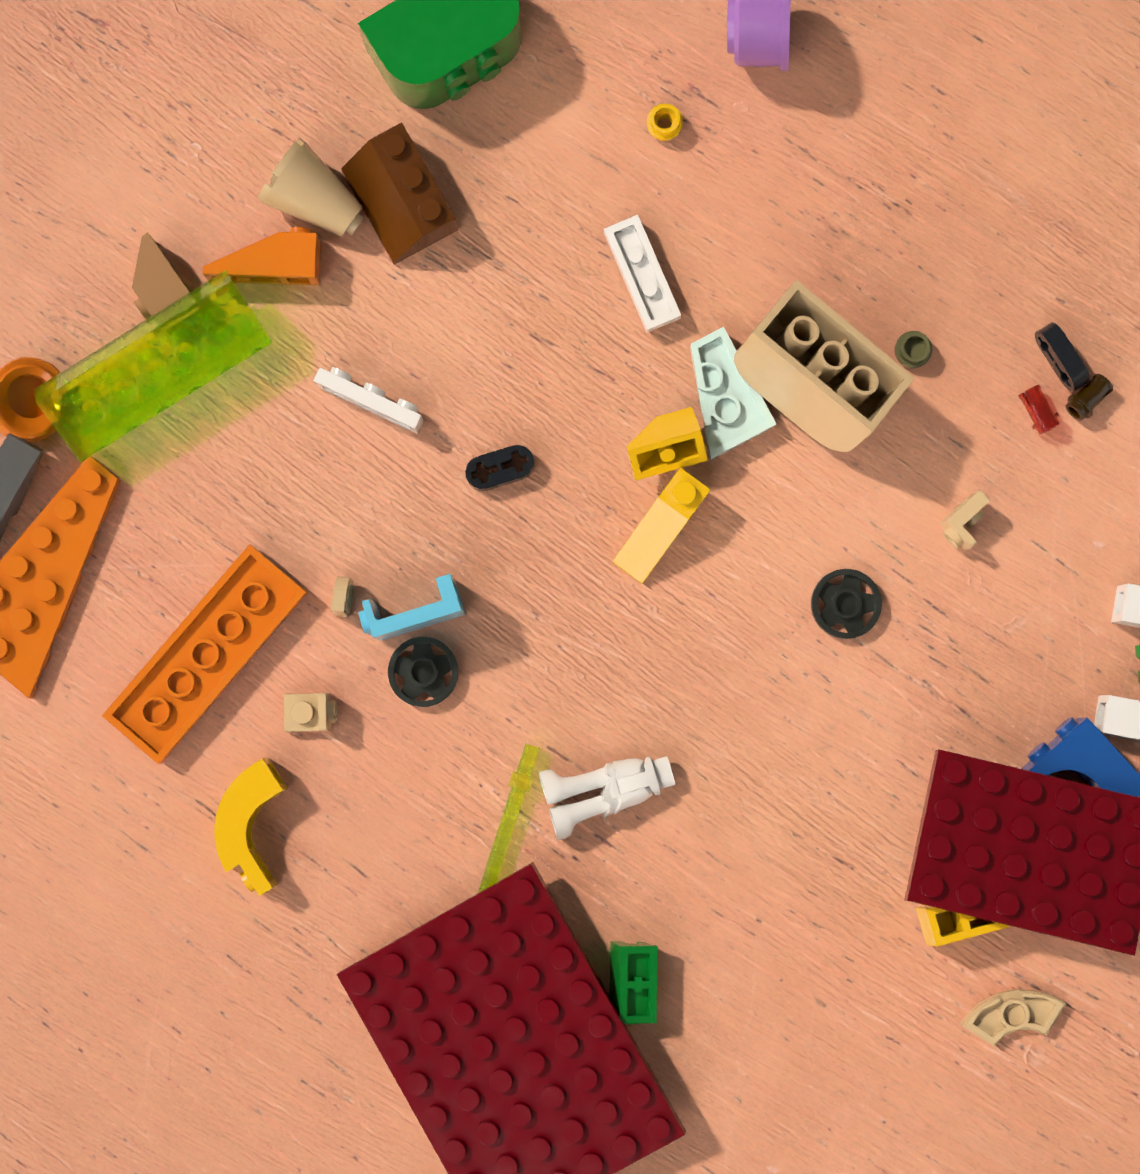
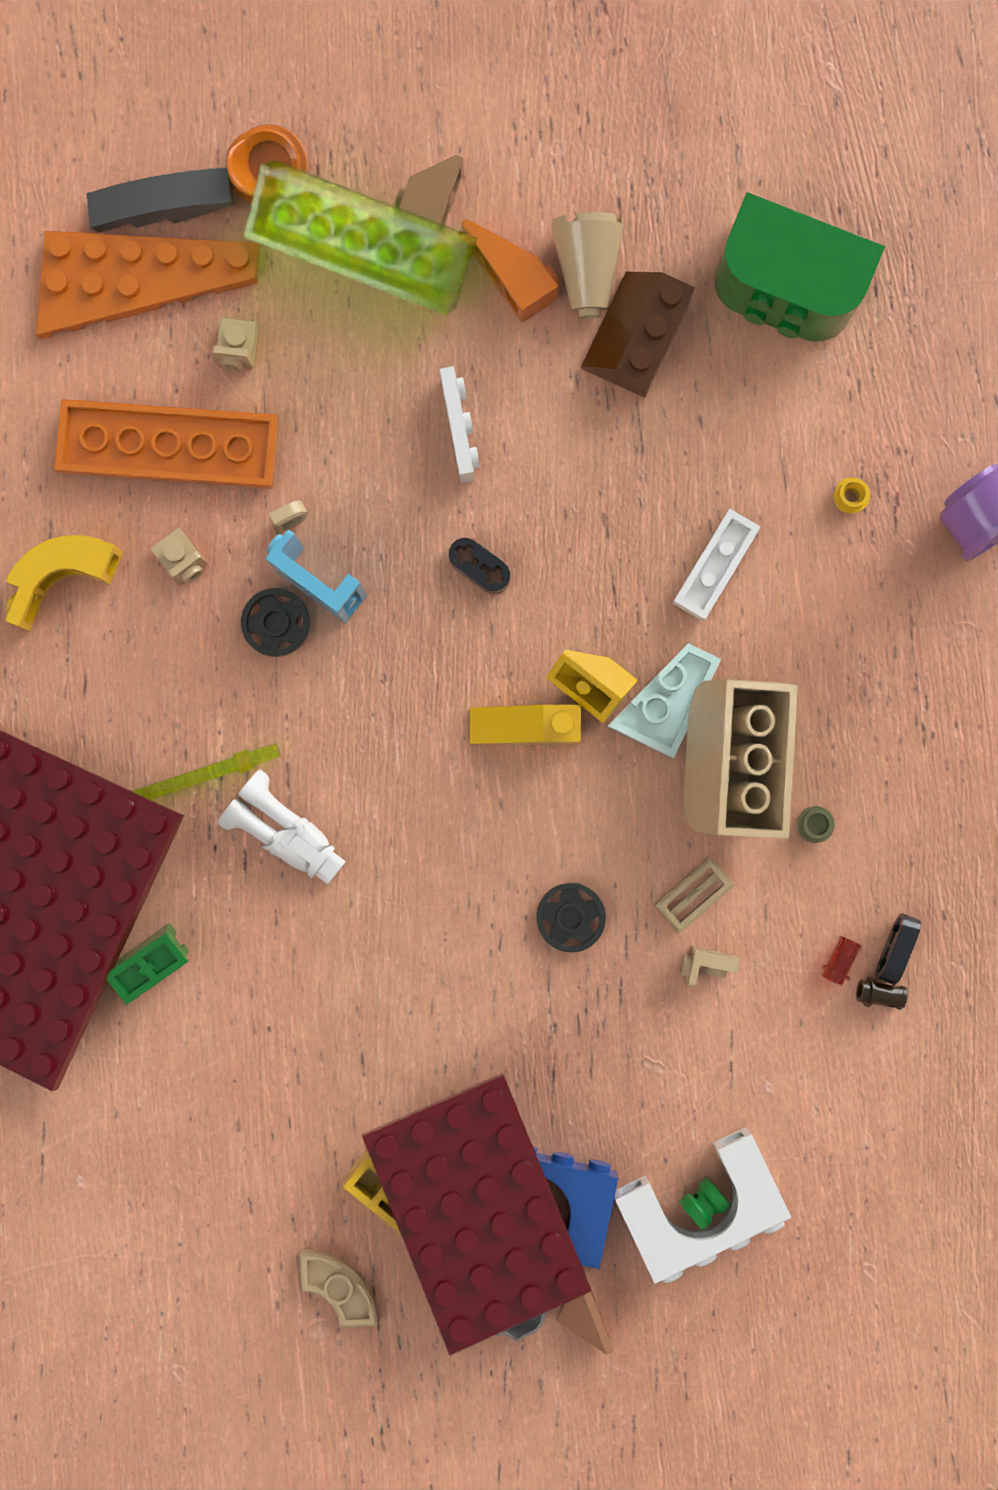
camera: 55 degrees right, 0 degrees up
(162, 535) = (236, 344): none -> tan bracket
(902, 521) = (686, 882): none -> tan tile

